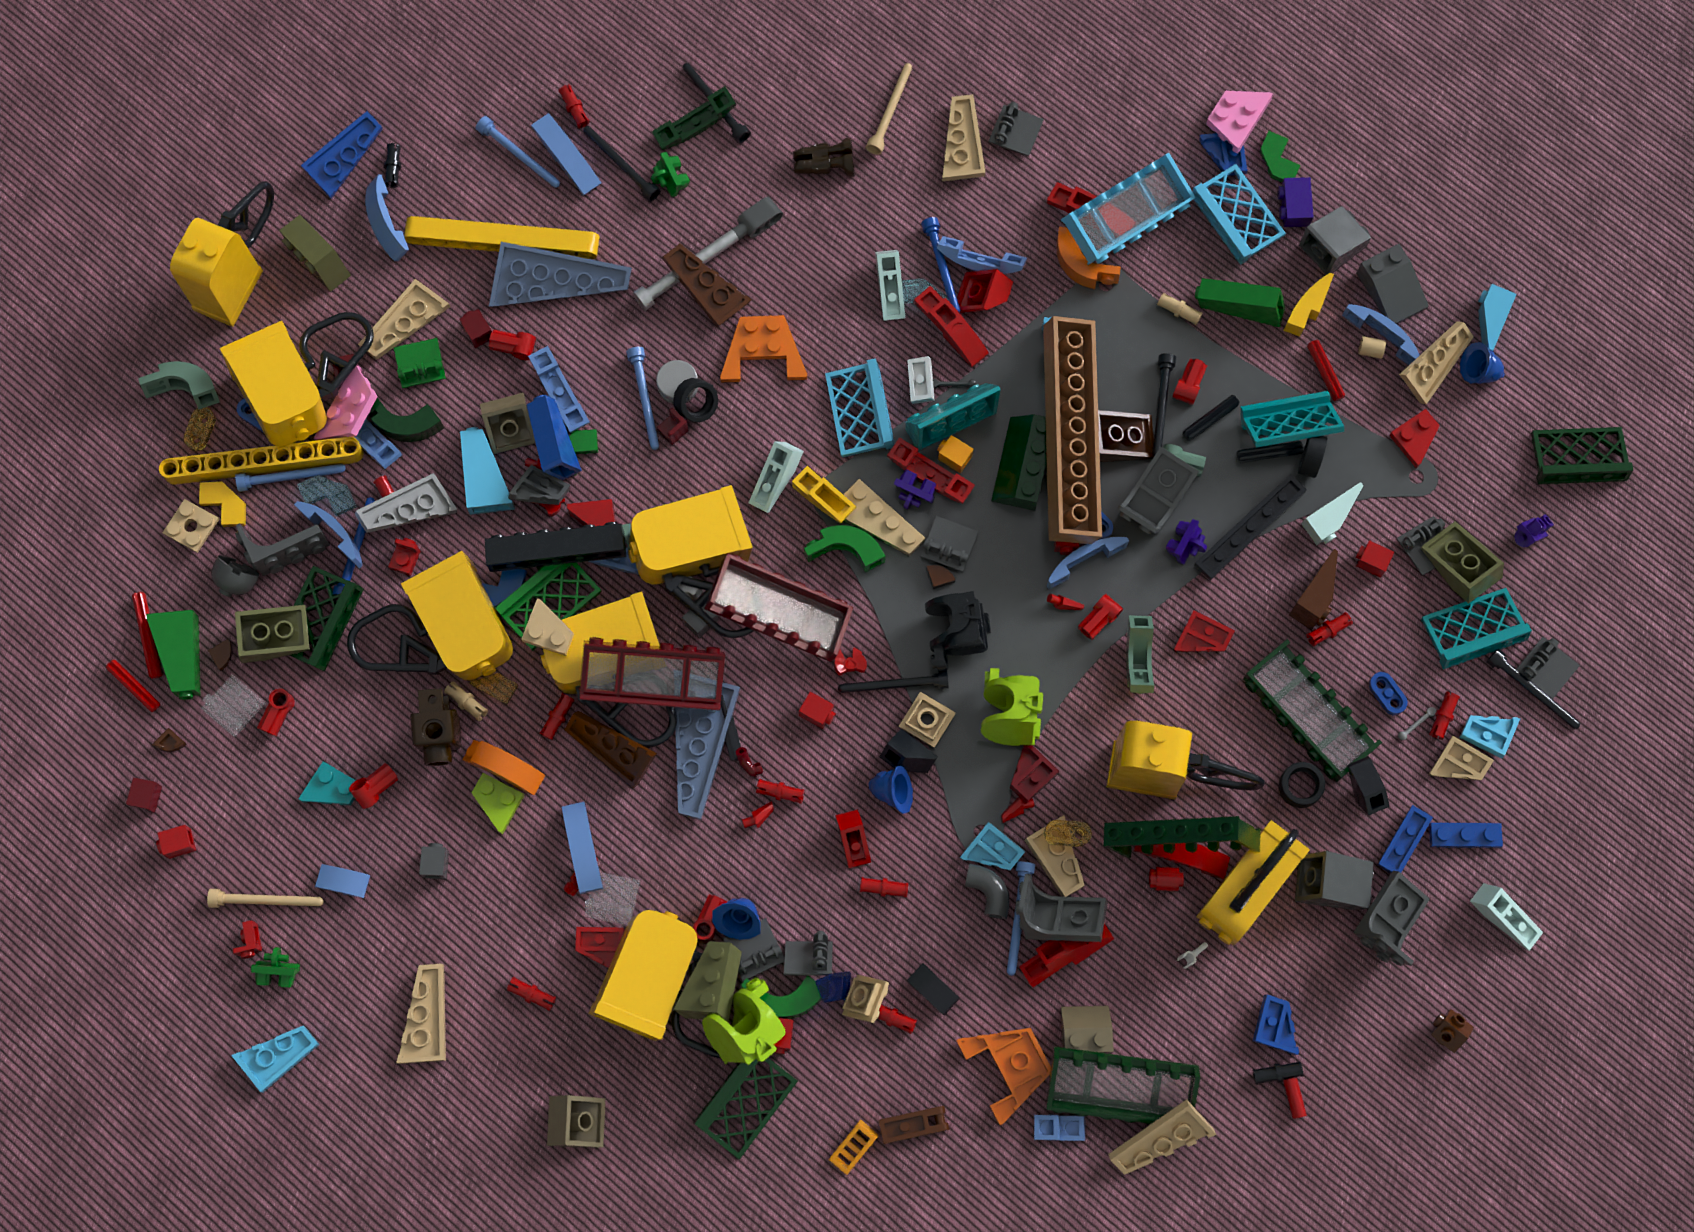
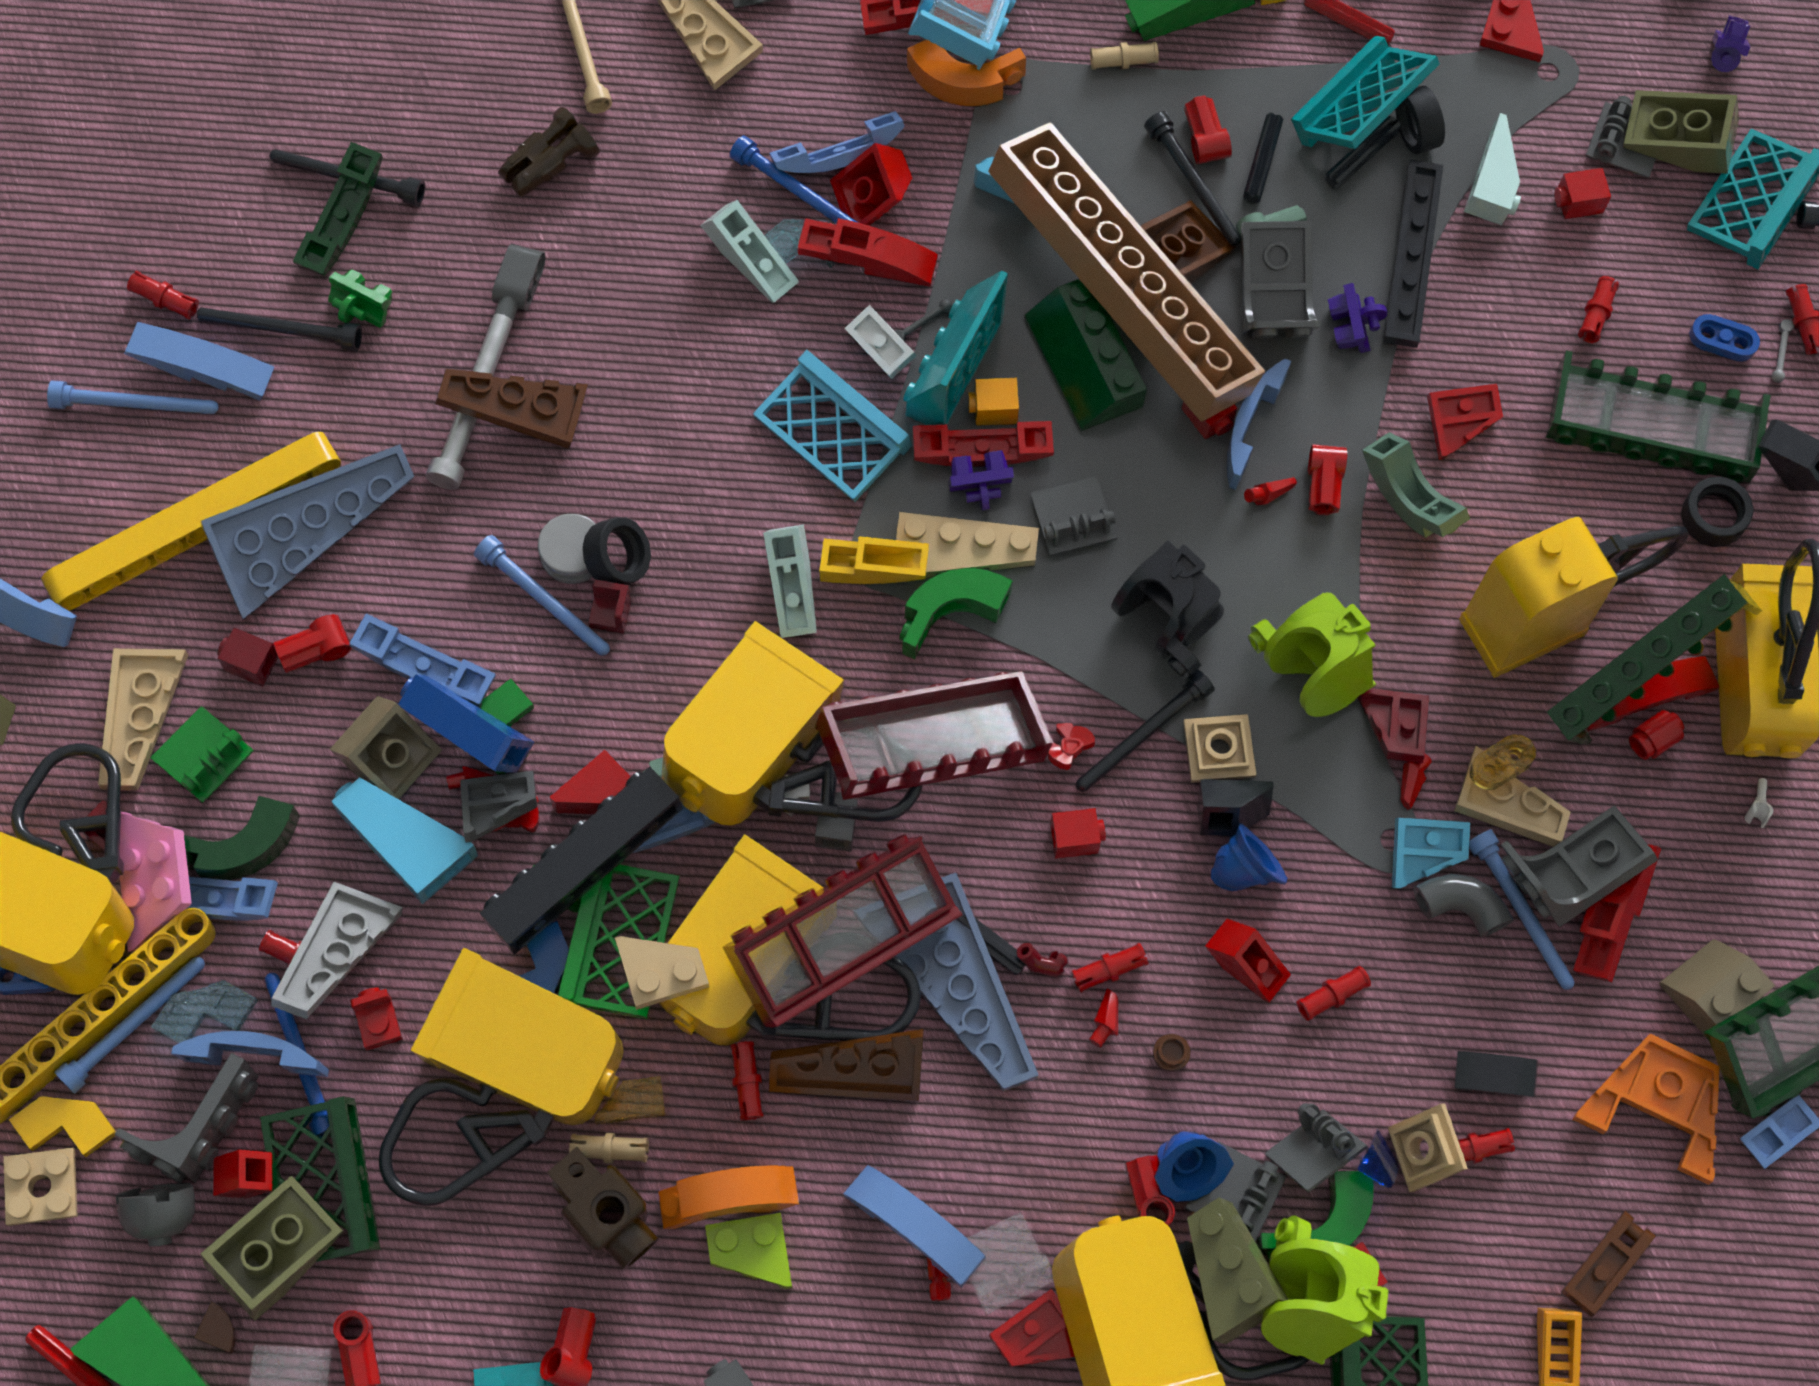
camera: 40 degrees left, 5 degrees down
(284, 587) = (242, 1174): none -> red brick
(759, 340) = (640, 424): orange wing -> none
(777, 856) = (1171, 1052): none -> reddish brown plate
(939, 576) = (1092, 562): reddish brown tile -> none
(1313, 604) = (1557, 273): reddish brown slope -> none

